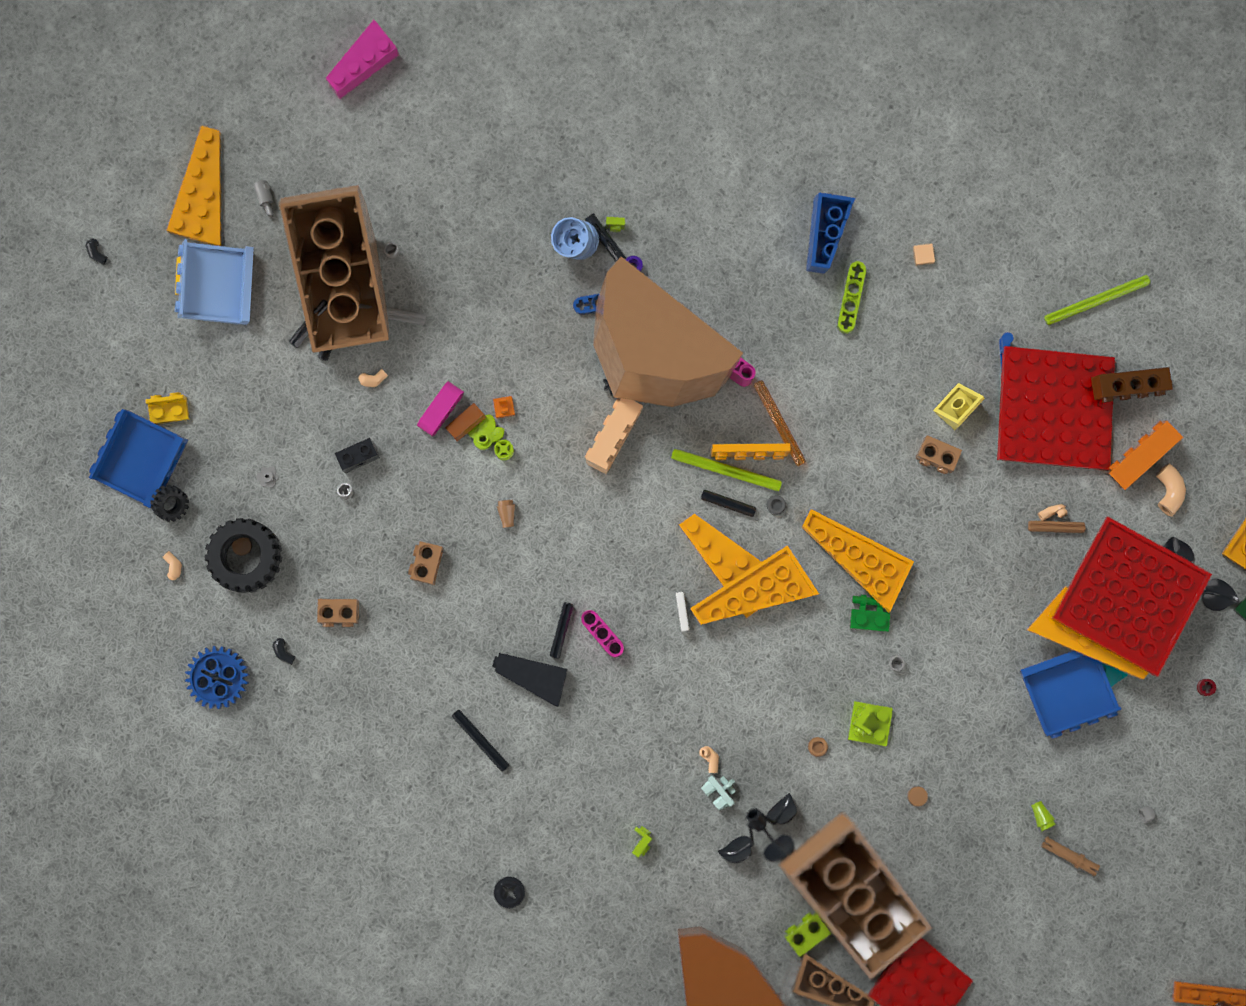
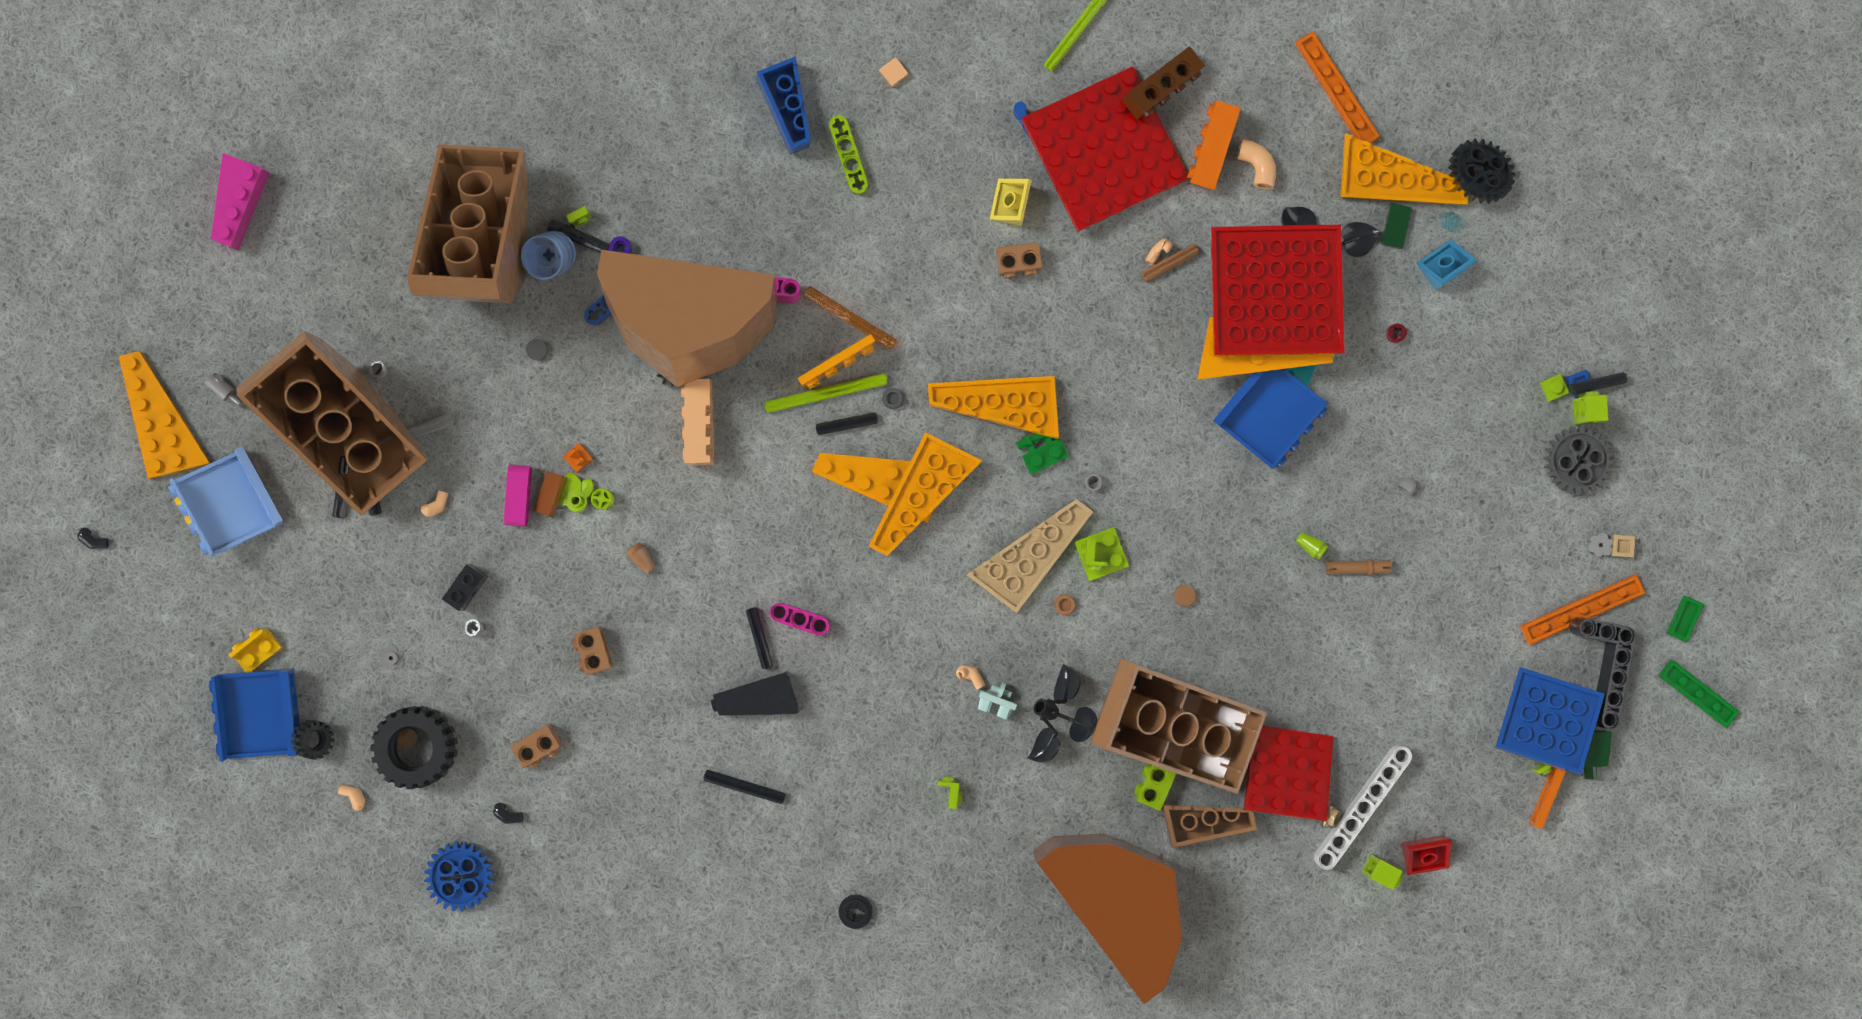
camera: 30 degrees left, 5 degrees up
(522, 306) = (537, 349): none -> dark grey tile
(531, 182) = (472, 226): none -> medium nougat brick
(682, 611) = (862, 552): white tile -> none
(802, 695) = (1024, 563): none -> tan wing

